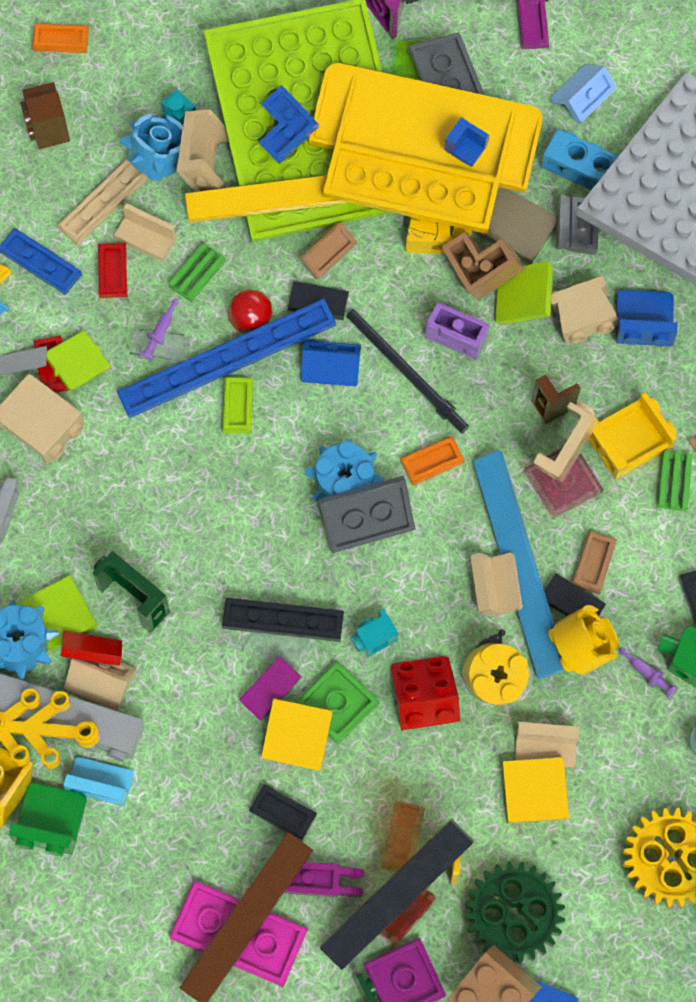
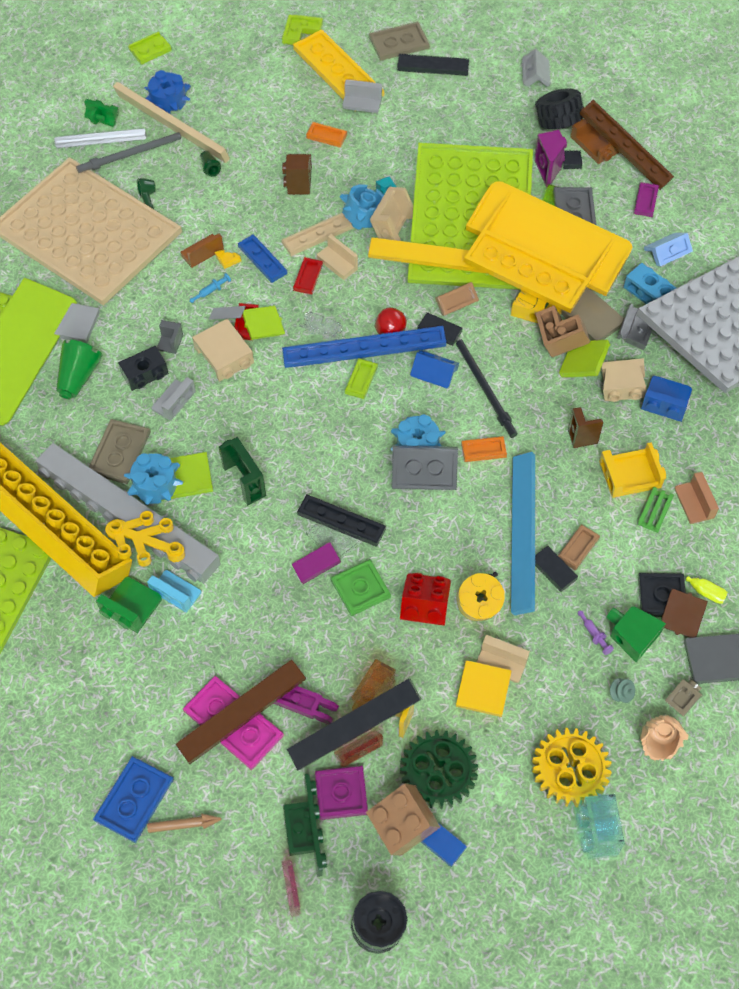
camera: 20 degrees right, 10 degrees down
(91, 648) = (202, 500): red tile -> none
(99, 681) = (200, 522): tan panel -> none
(159, 331) = (319, 318): medium lavender piece -> none
(210, 254) = (362, 288): bright green tile -> none
(282, 812) = (295, 648): black tile -> none
(293, 127) = (457, 214): blue plate -> none
(297, 734) = (324, 598): yellow tile -> none
(375, 634) = (403, 549): teal brick -> none
(457, 331) = (529, 369): medium lavender brick -> none
(466, 142) = (573, 248): blue panel -> none
(496, 584) = (501, 540): tan panel -> none
(560, 497) = (573, 487): clear pink tile -> none
(571, 450) = (585, 459): tan panel -> none
(584, 640) = (553, 593): yellow brick -> none

